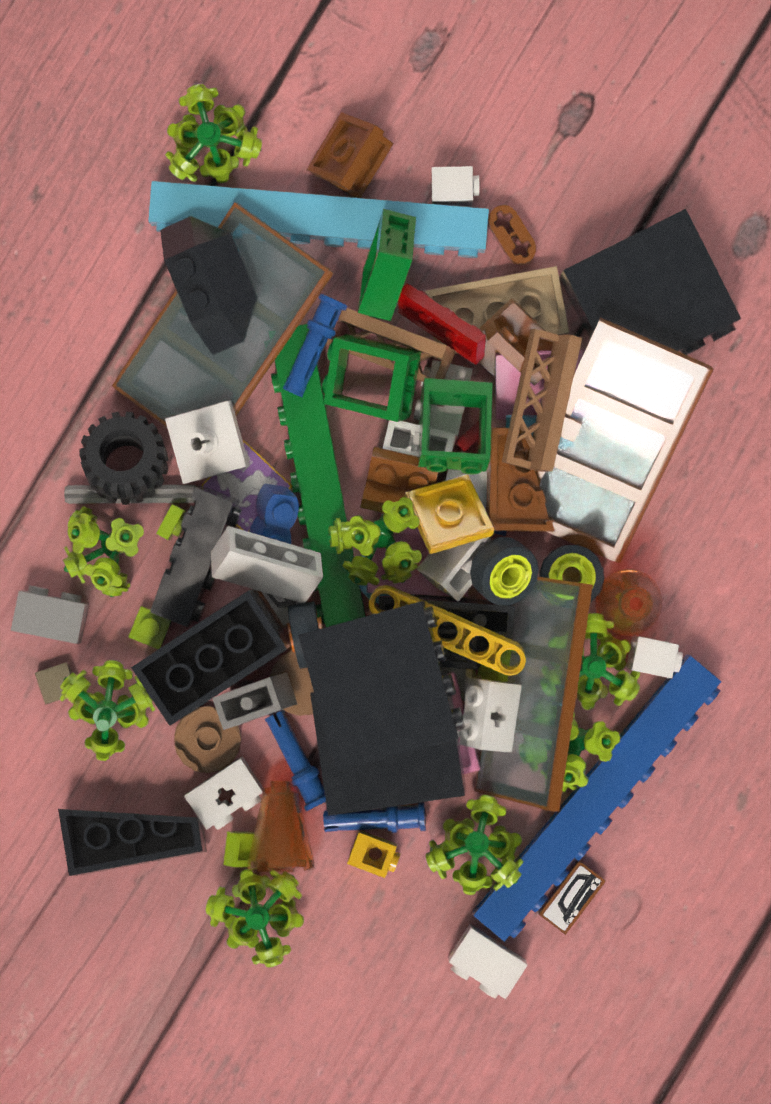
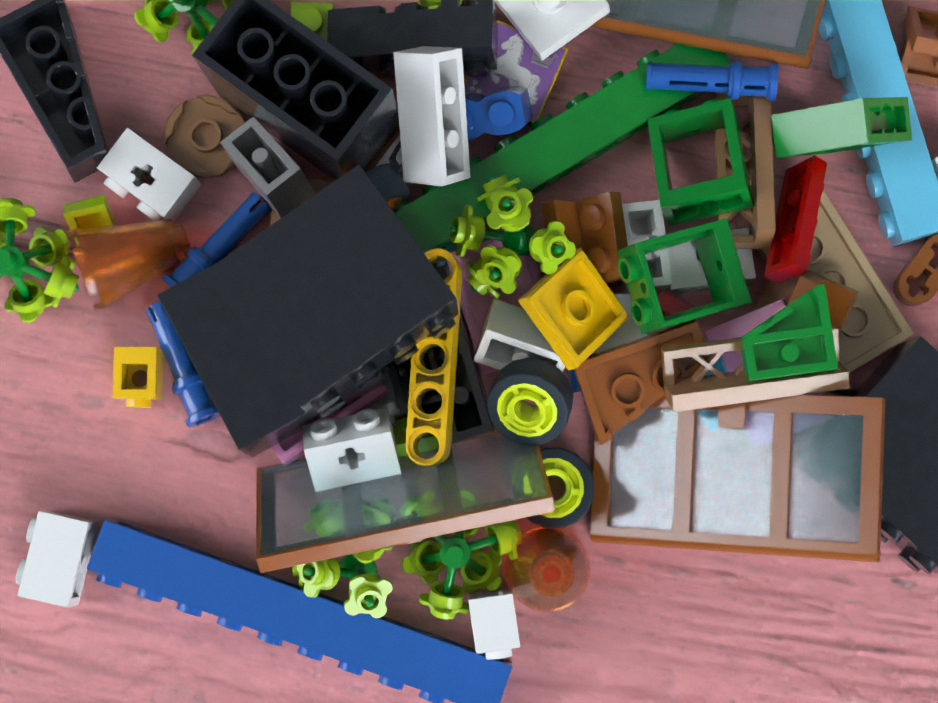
camera: 75 degrees right, 5 degrees down
(462, 838) = (192, 475): lime plant -> none
(532, 367) = (792, 340): none -> green wing
(572, 897) = (171, 631): tile -> none

